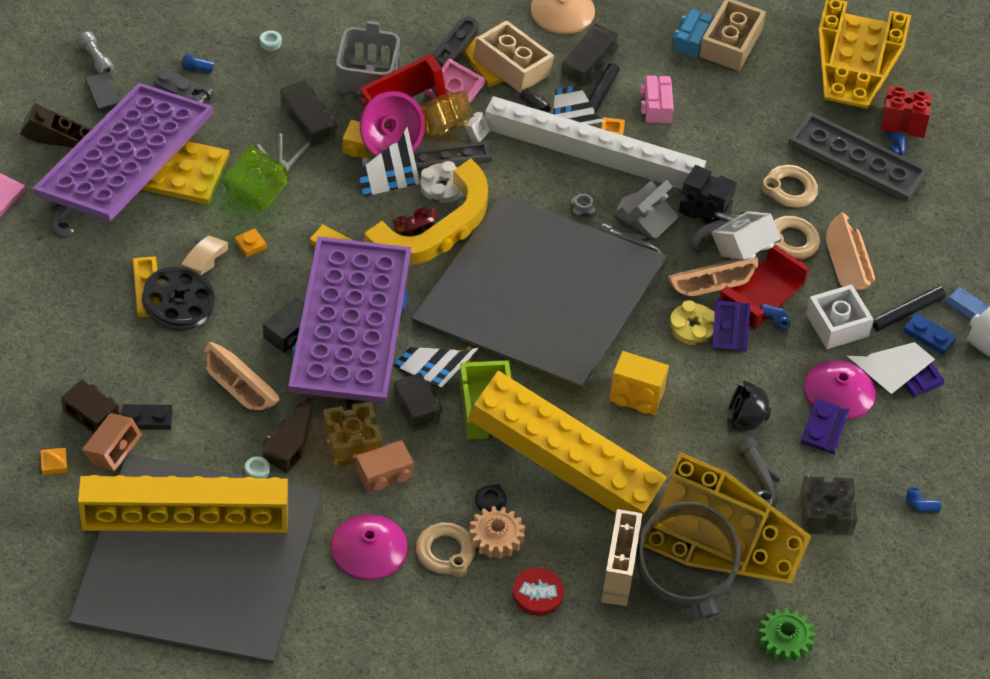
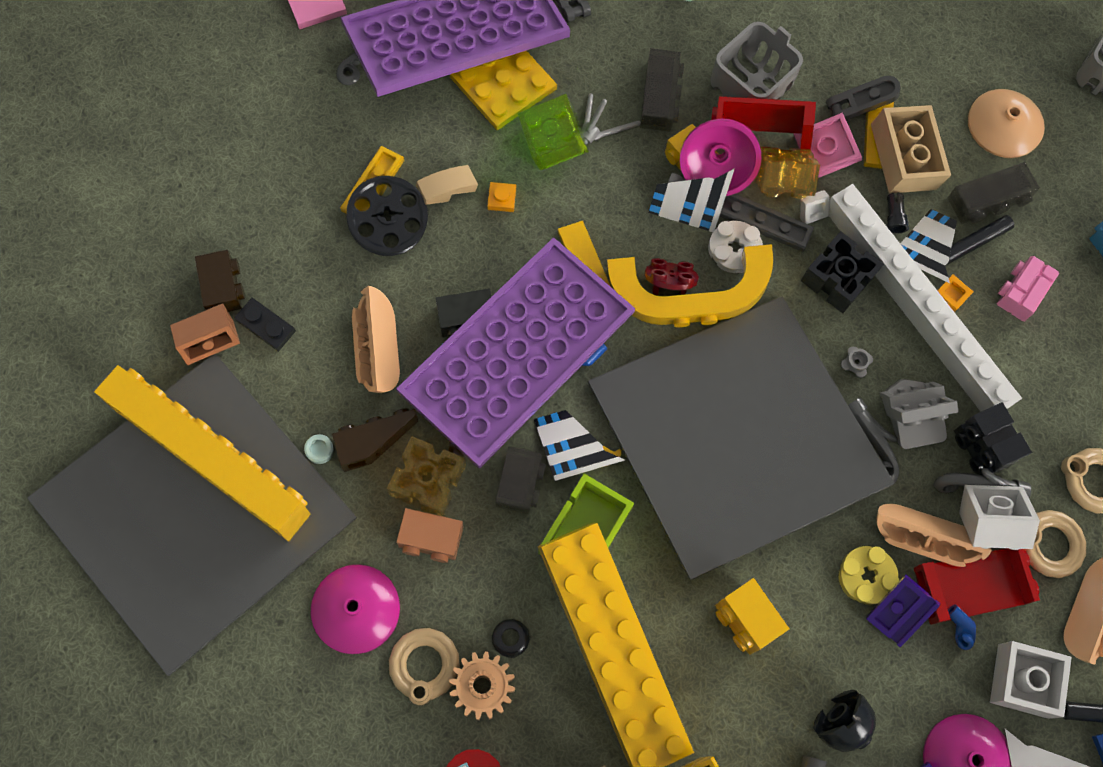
camera: 35 degrees right, 20 degrees up
(54, 461) = (149, 316): light orange tile -> none
(529, 155) = (841, 272): none -> black brick

